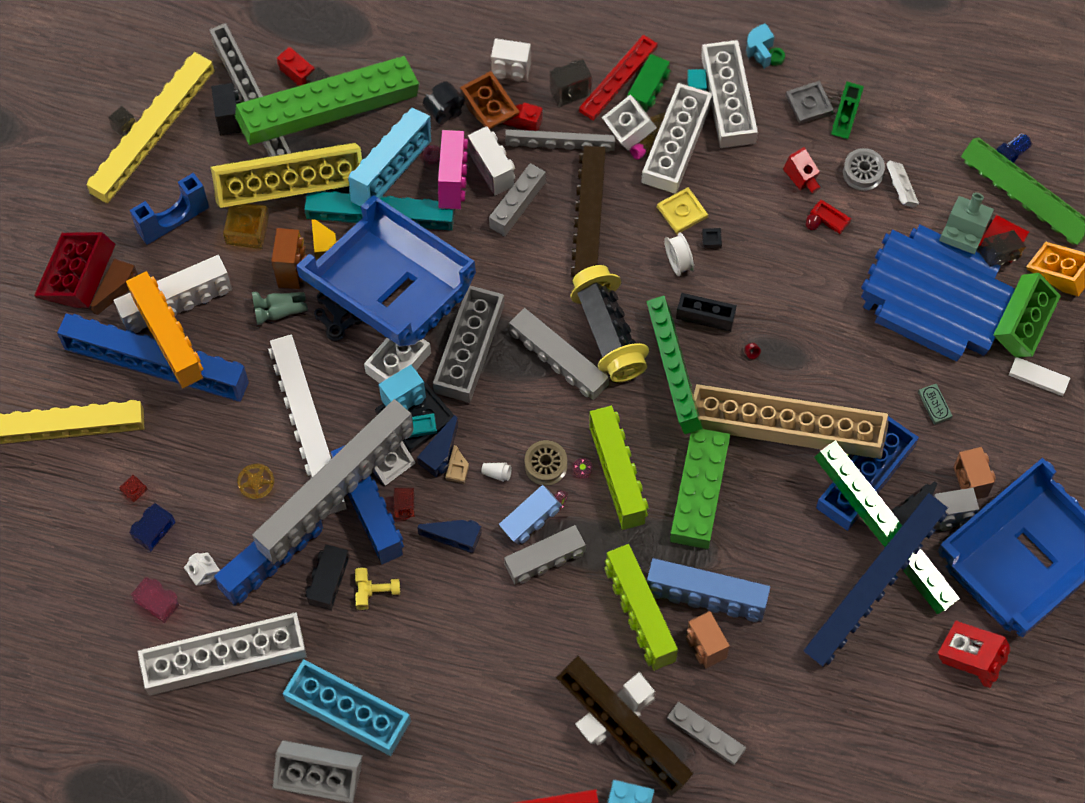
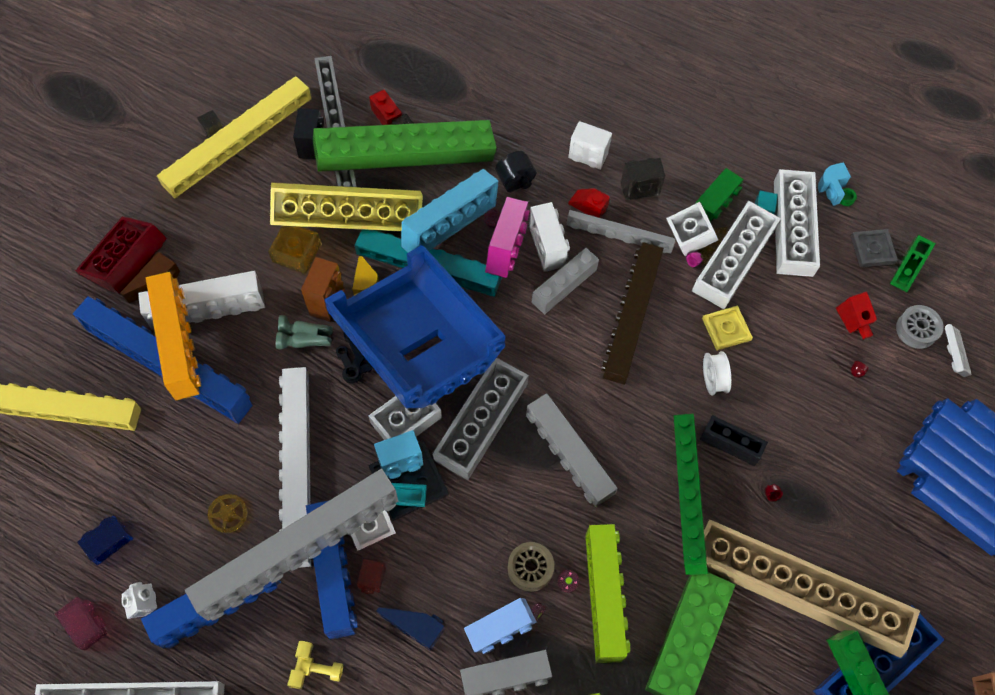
camera: 10 degrees right, 0 degrees up
(133, 488) = (102, 491): clear red plate -> none
(190, 203) = (207, 228): blue arch -> none
(327, 577) = (267, 642): black brick -> none
(438, 452) = (420, 529): dark blue slope -> none
(457, 467) = (437, 548): tan tile -> none
(488, 100) = (559, 178): dark orange slope -> none
(498, 471) = (478, 563): white cone -> none
(618, 77) = (689, 184): red plate -> none
(620, 353) = (631, 444): brick -> none
(712, 238) = (752, 363): black plate -> none
(831, 216) = (878, 368): red tile -> none
(935, 404) = (961, 599): sand green tile -> none

